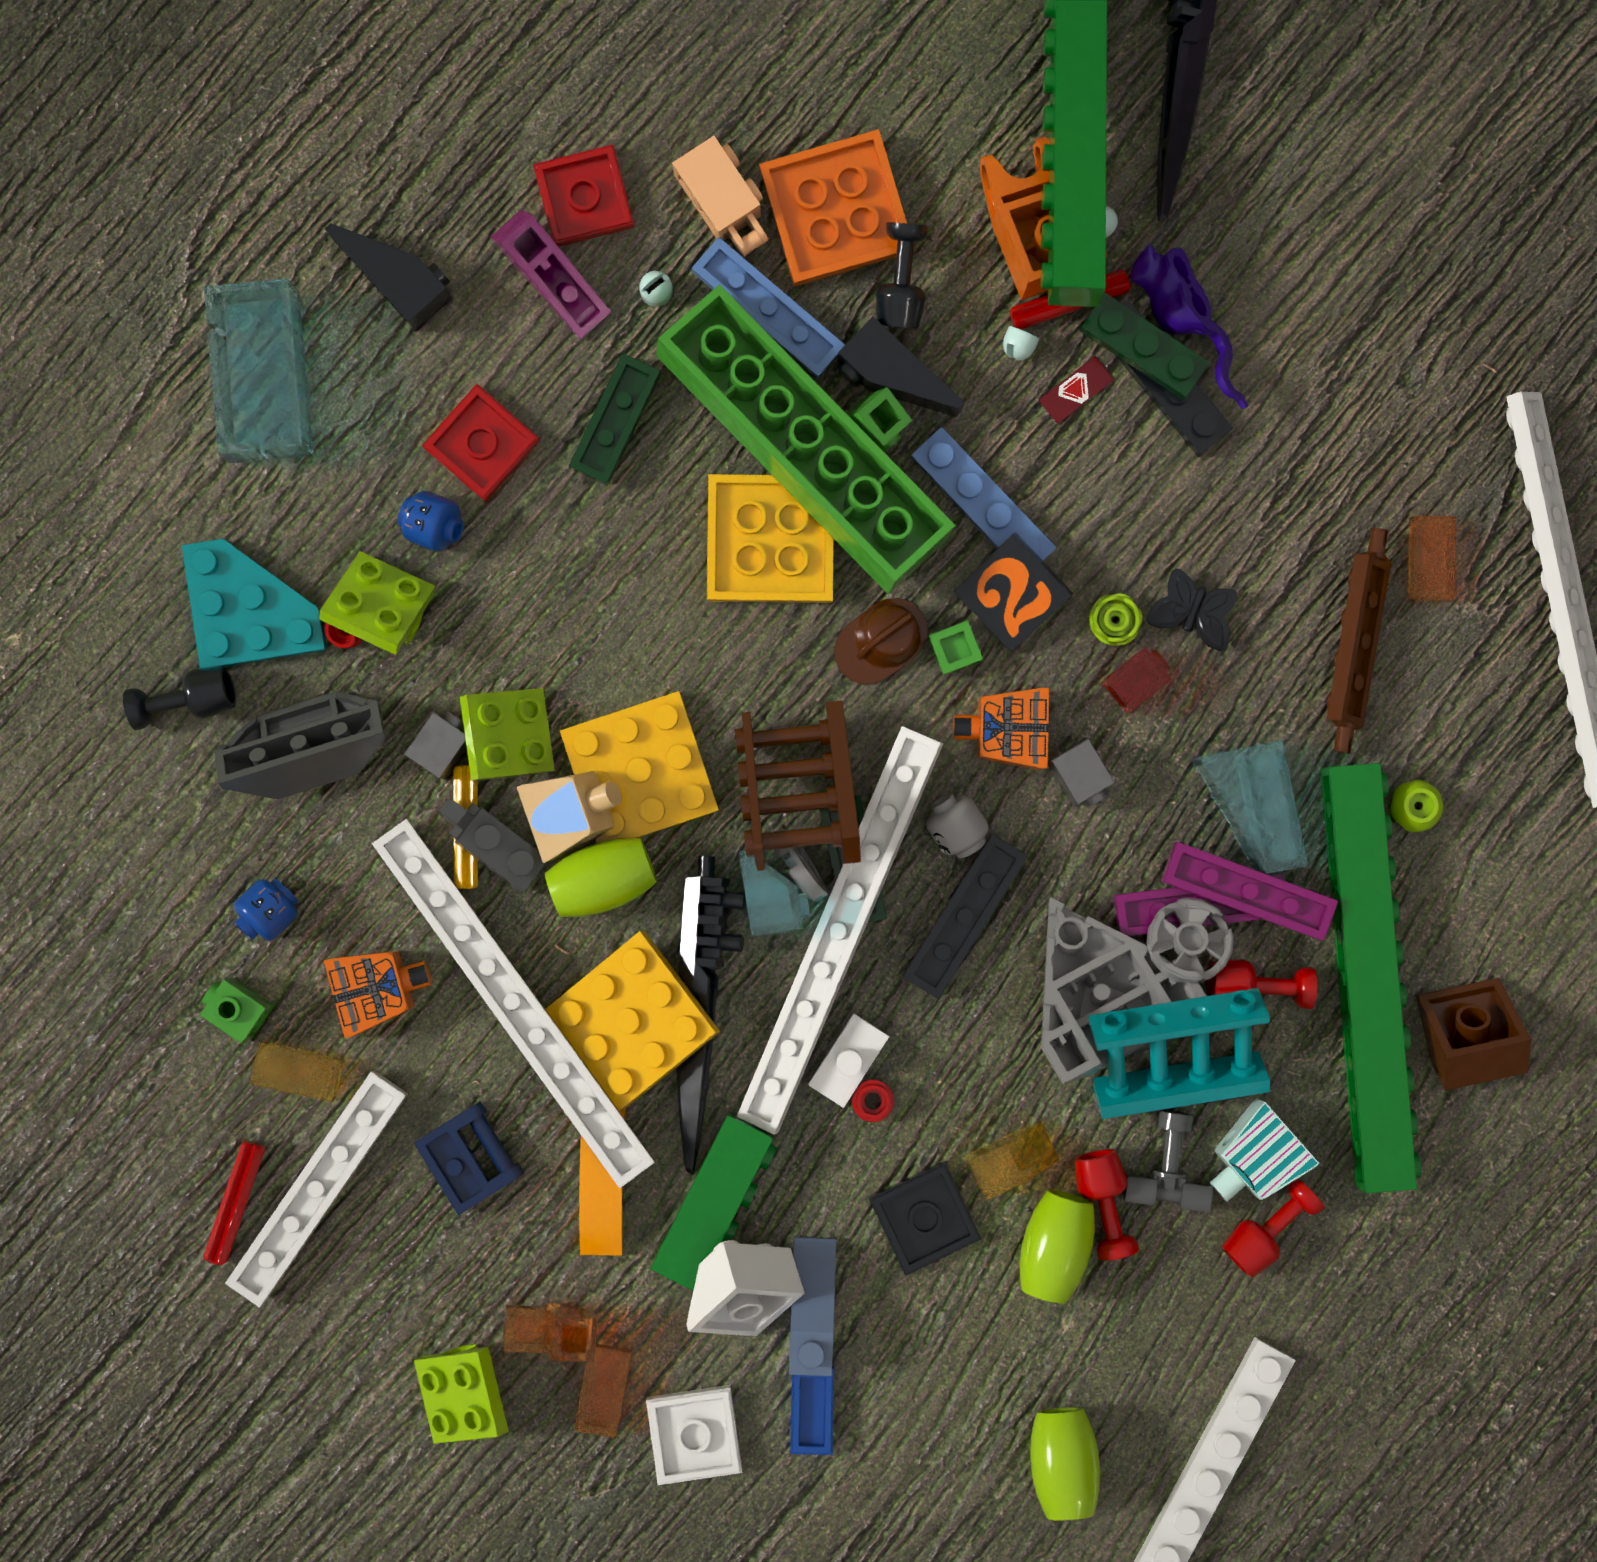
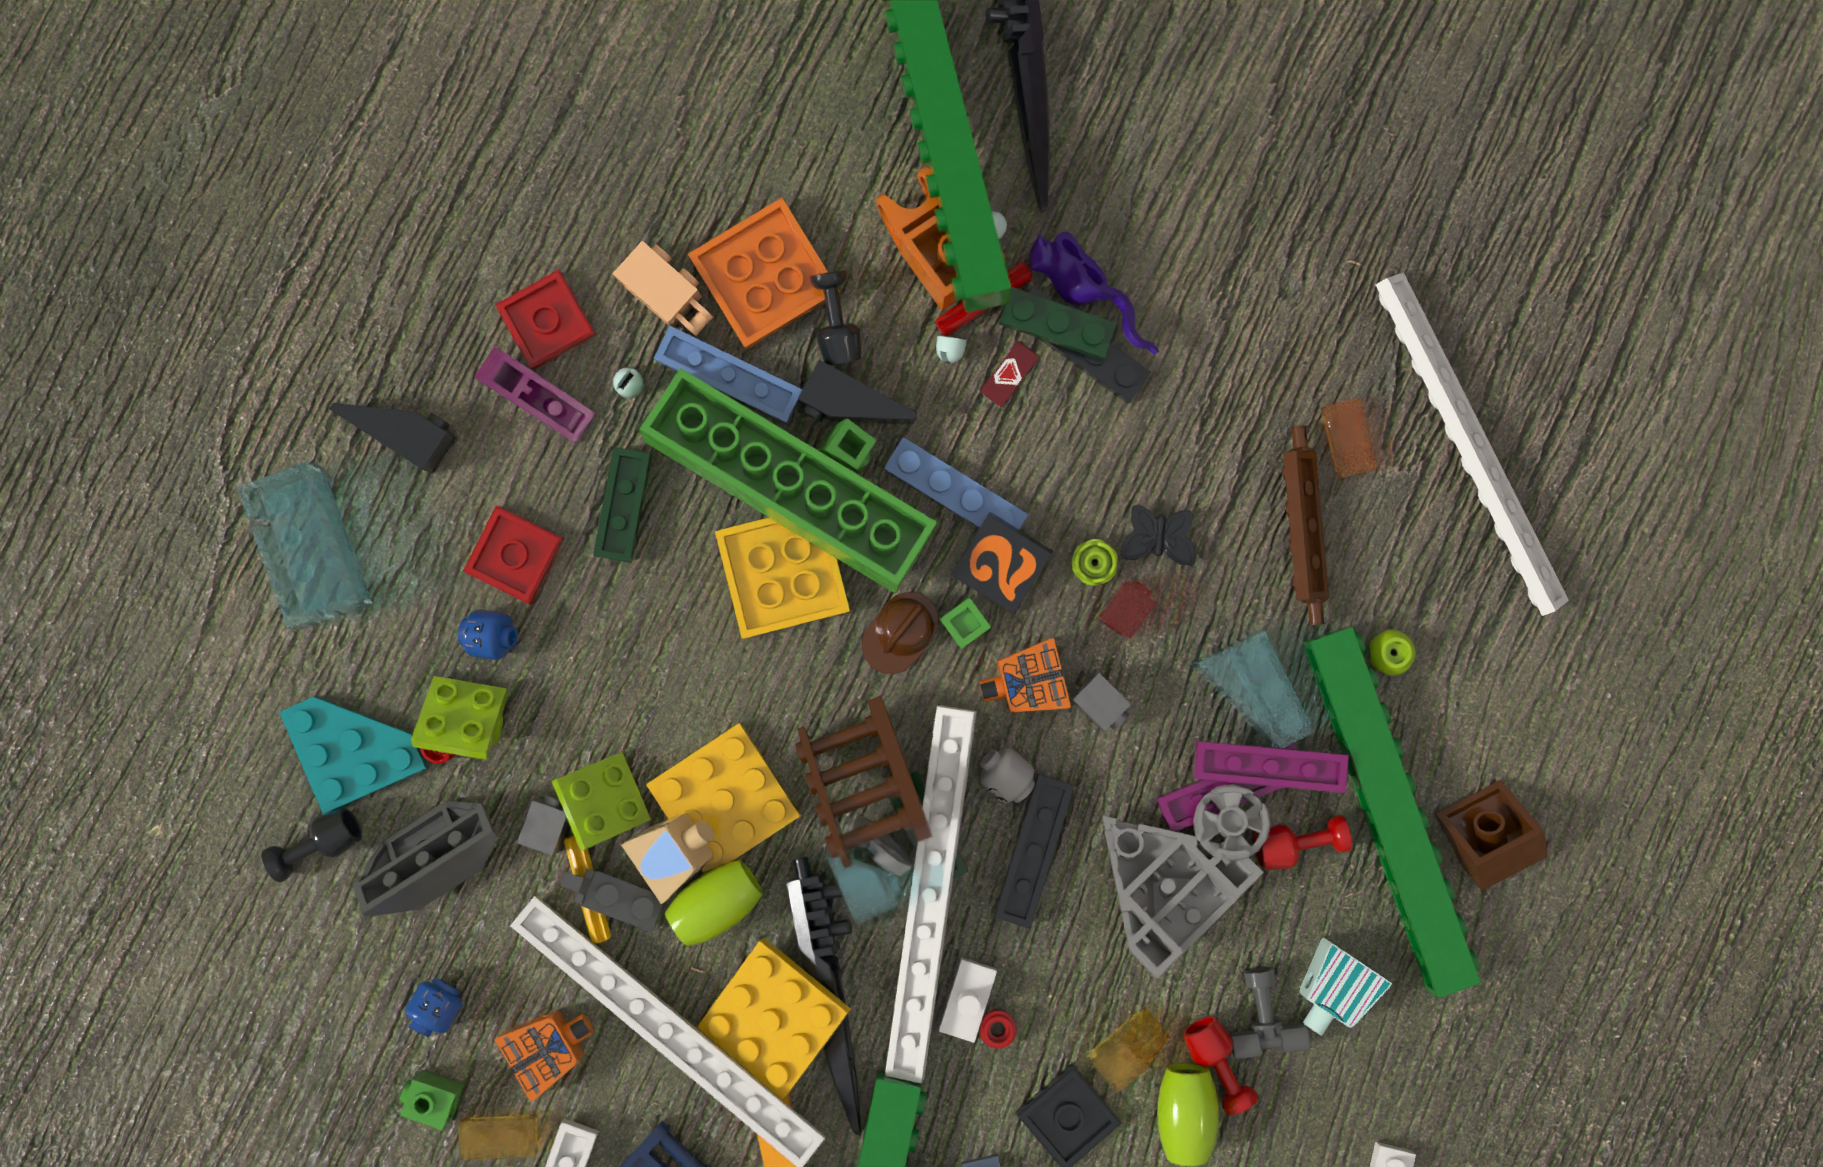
camera: 20 degrees left, 0 degrees up
(1184, 1083) = (1259, 943): teal fence -> none
(1254, 1246) = (1354, 1066): red piece -> none

